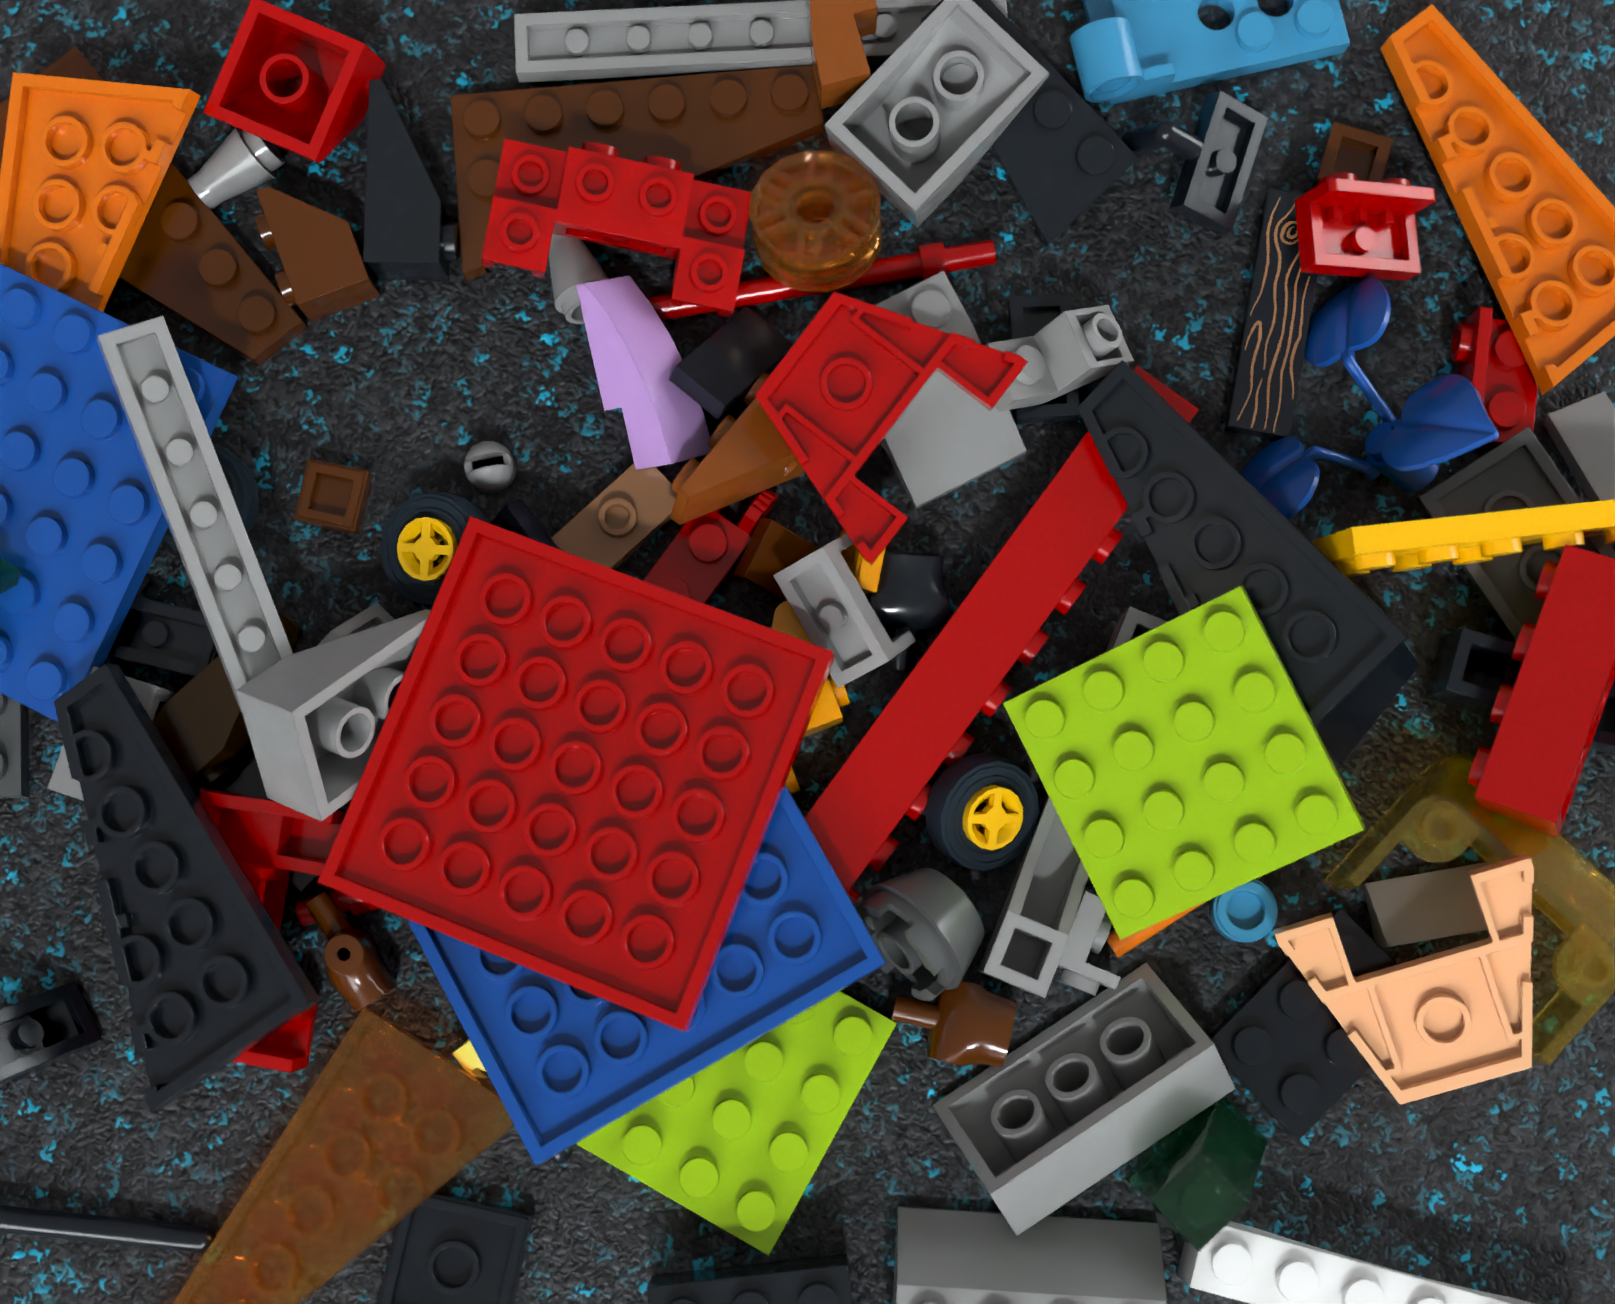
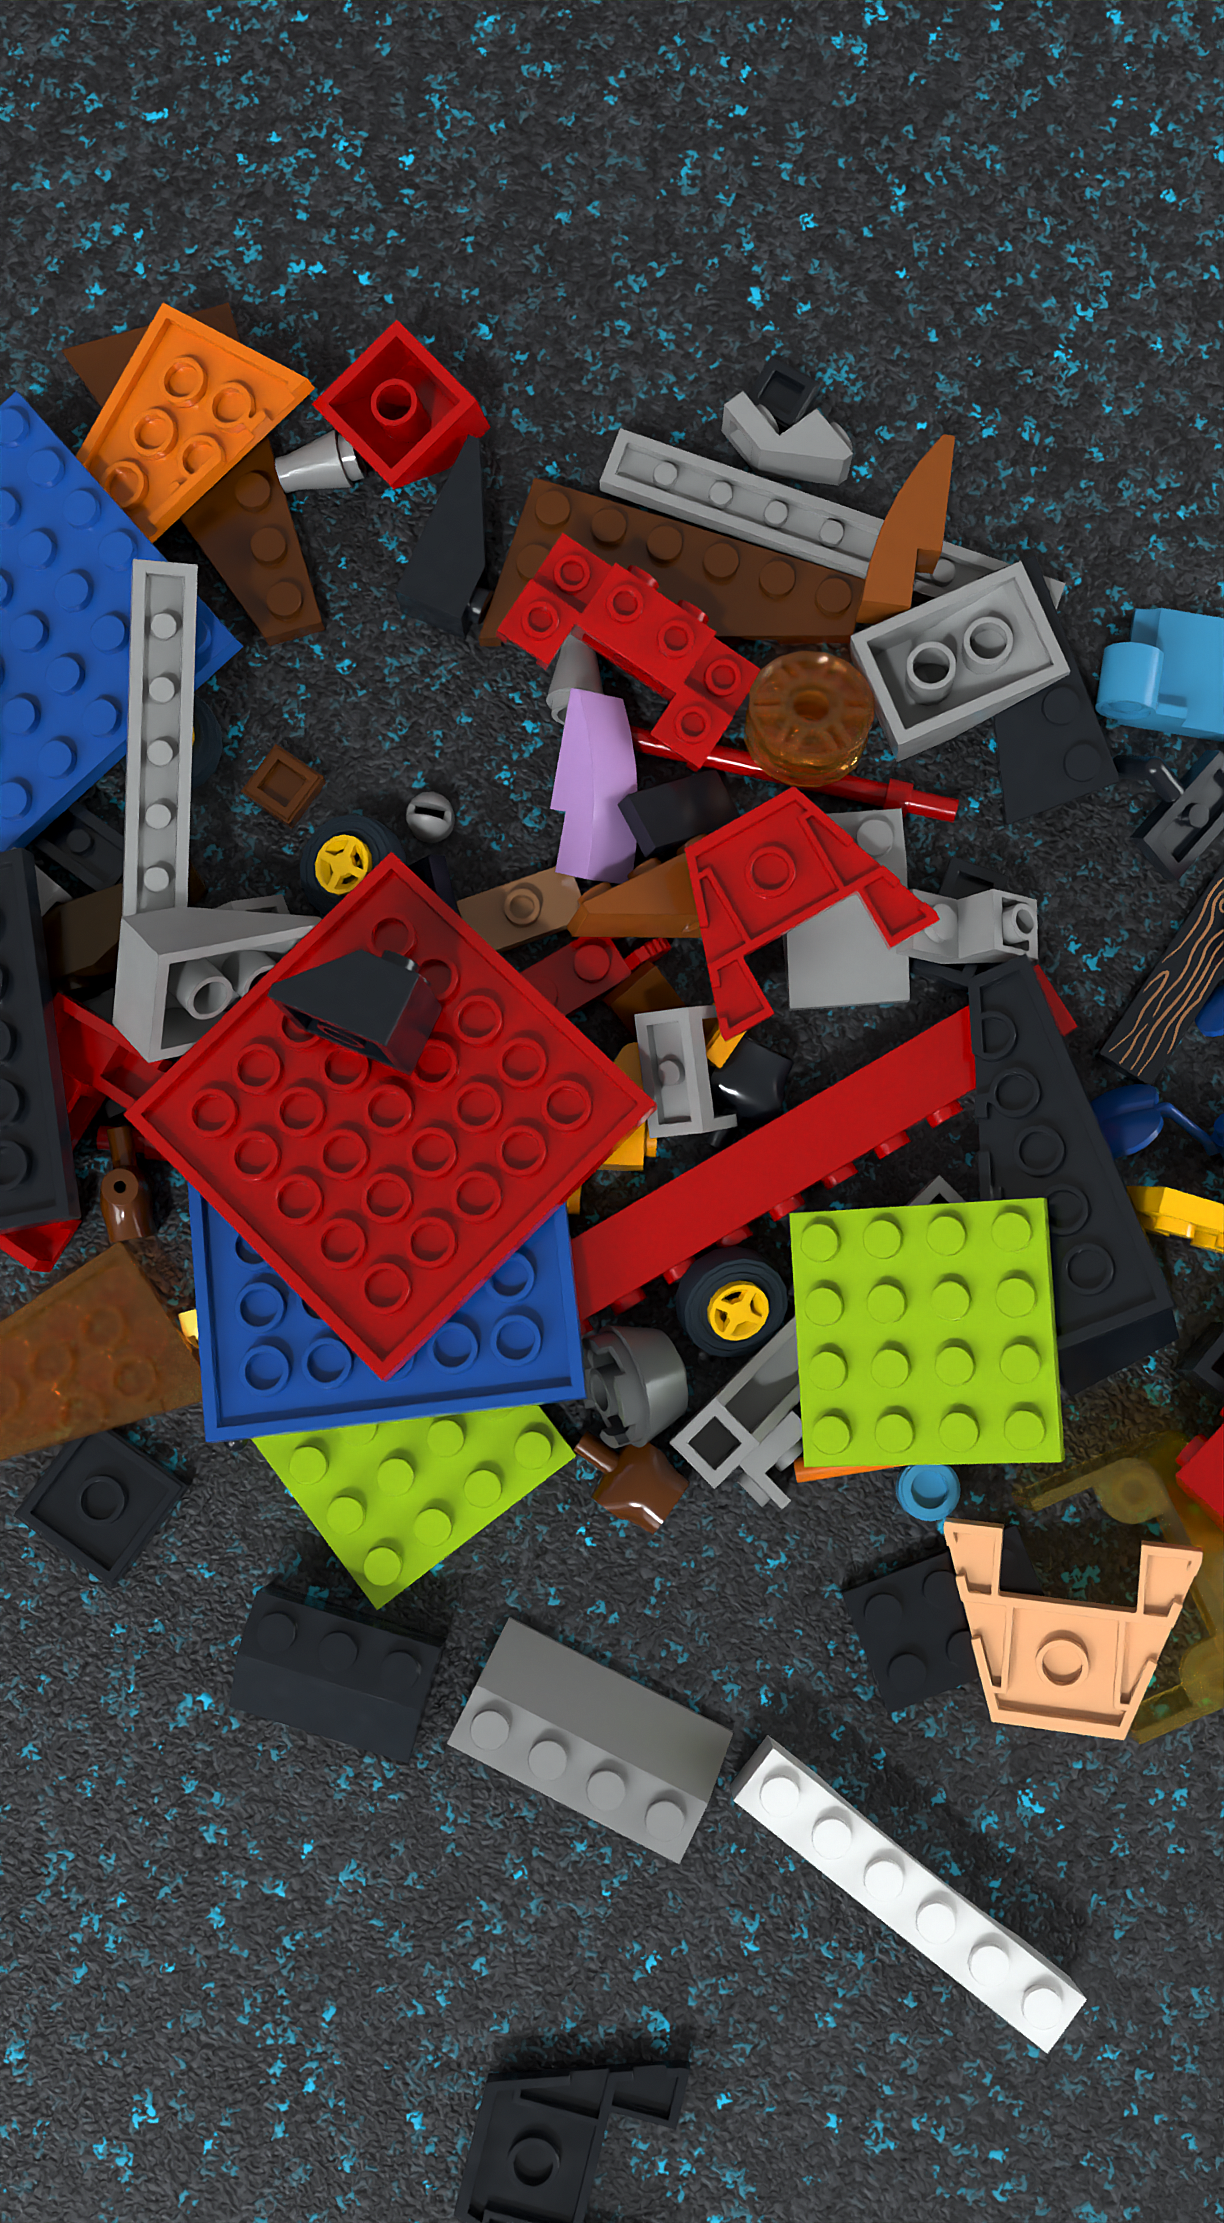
camera: 25 degrees right, 0 degrees up
(318, 256) = (358, 569): reddish brown slope -> none
(512, 677) = (364, 1006): none -> black slope
(1084, 1097) = (713, 1593): light grey slope -> none
(1203, 1173) = (791, 1704): clear green slope -> none
(1423, 906) = (1090, 1555): light grey slope -> none

